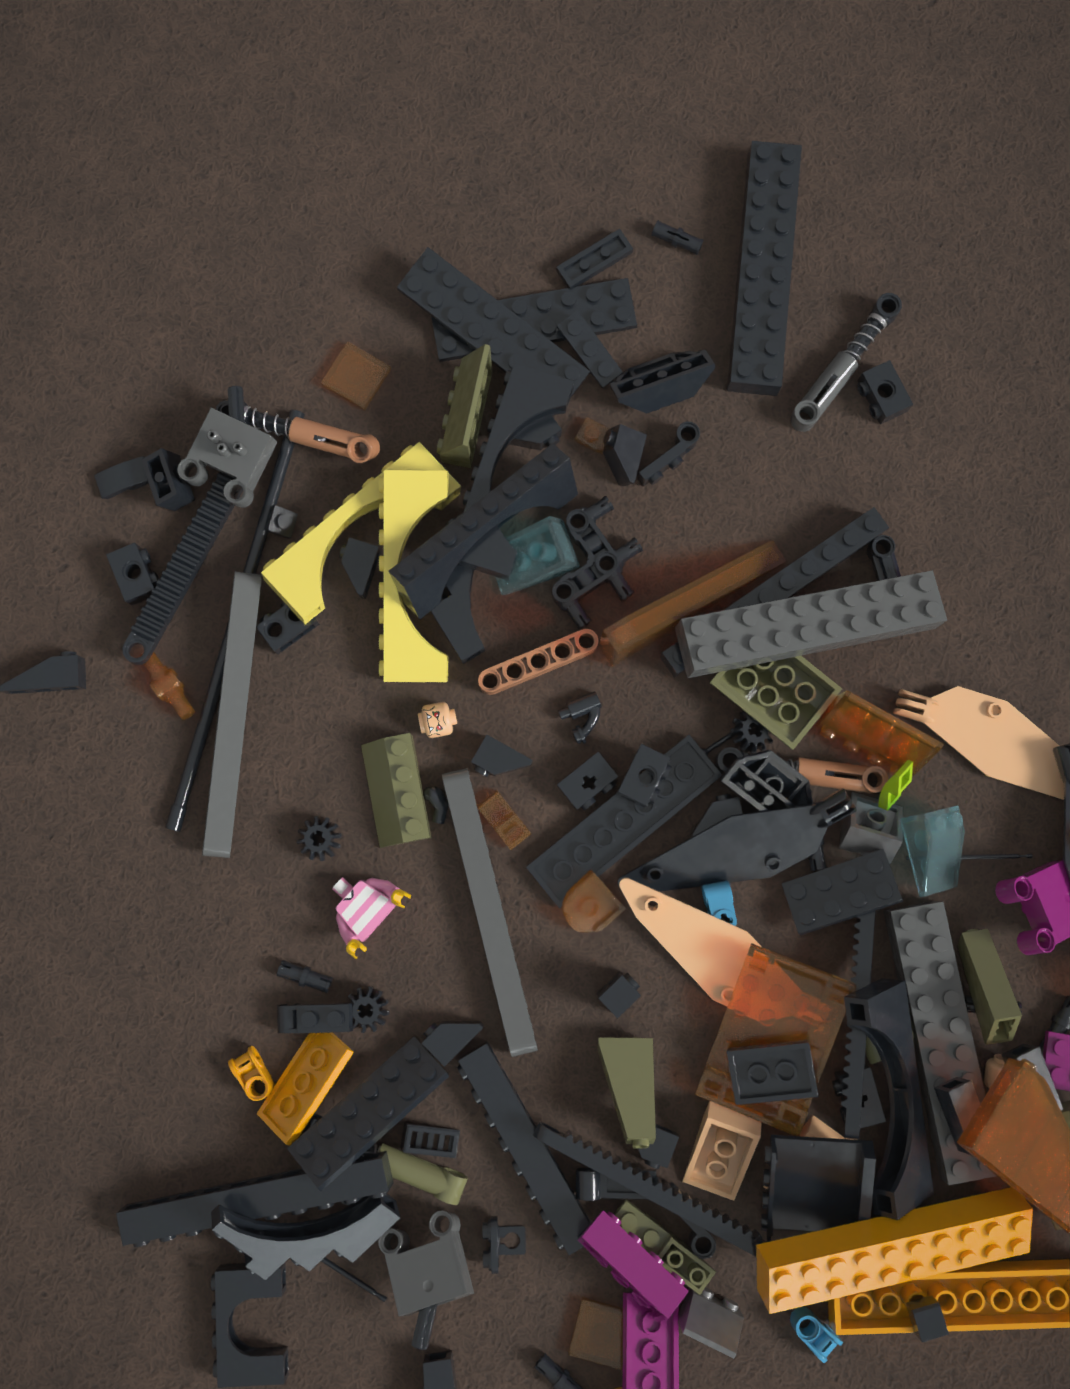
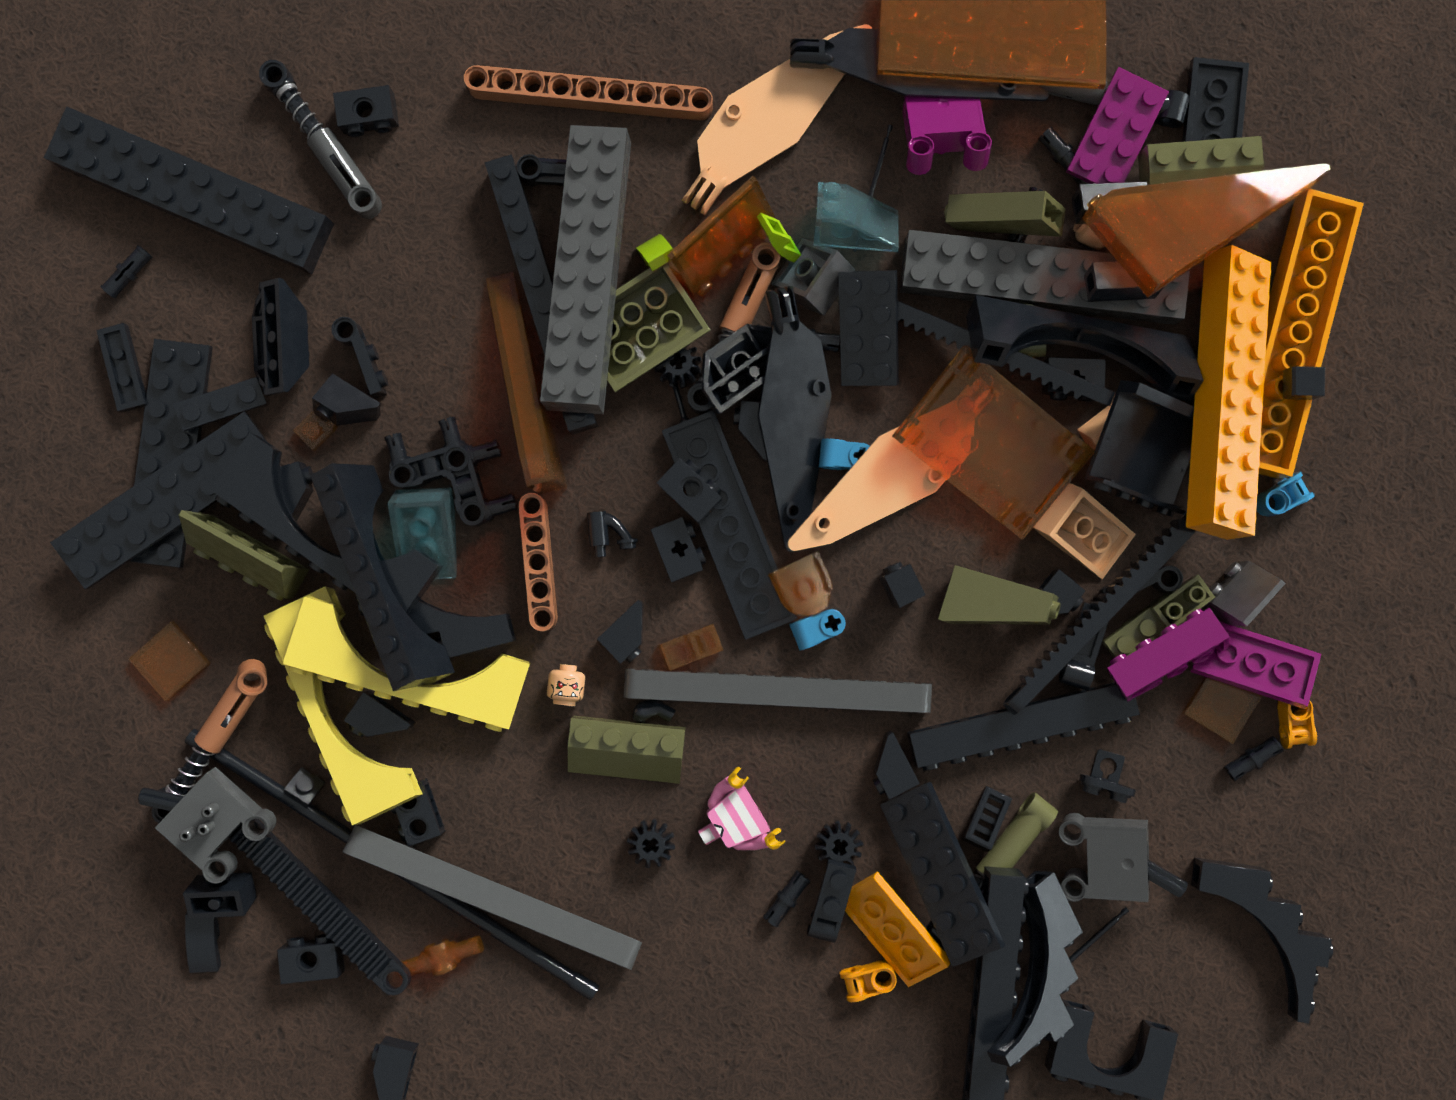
camera: 75 degrees left, 5 degrees up
(552, 925) = (812, 630): none -> dark azure piece
(772, 1072) = (1024, 456): black plate -> none
(845, 679) = (655, 251): none -> lime slope
(962, 590) = (578, 84): none -> nougat beam

